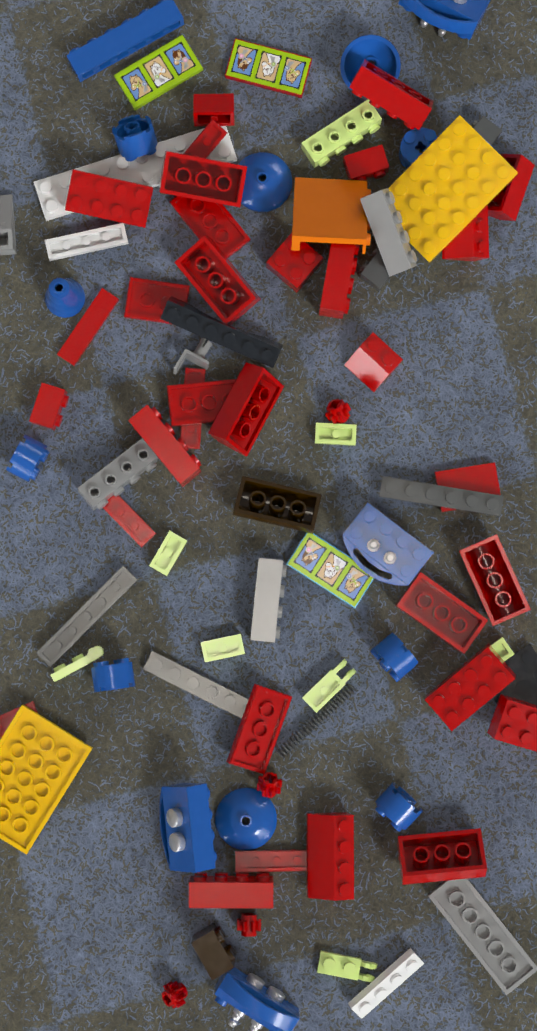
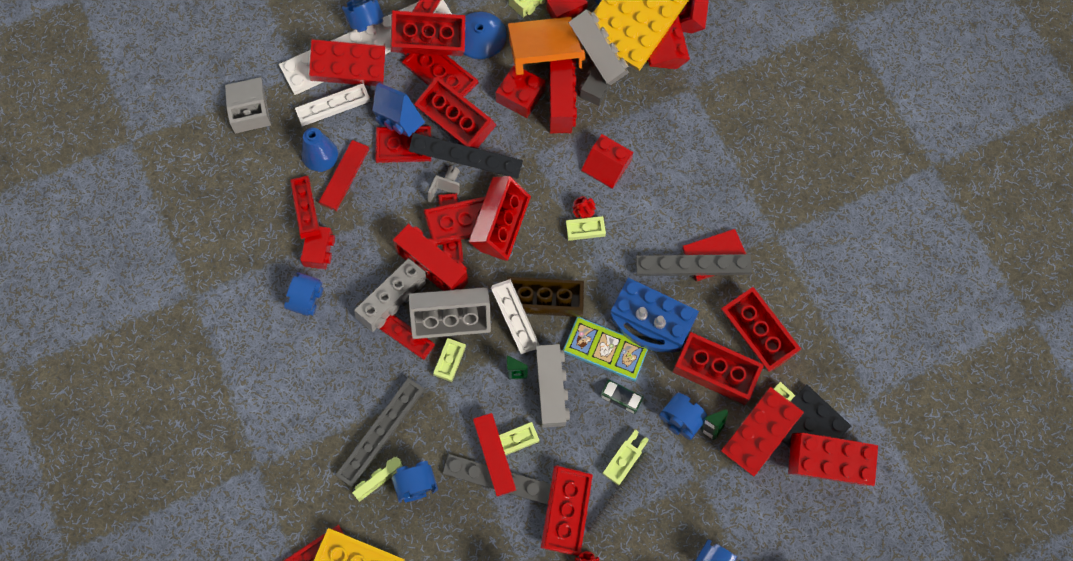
camera: 10 degrees left, 15 degrees down
(41, 359) = (305, 207): none -> red tile
(152, 269) = (396, 110): none -> blue slope
(175, 507) = (450, 313): none -> light grey brick
(197, 661) = (494, 454): none -> red tile
(232, 578) = (516, 369): none -> dark green slope
(242, 524) = (515, 316): none -> white plate
(337, 622) = (621, 396): none -> slope
(424, 671) = (714, 424): none -> dark green slope

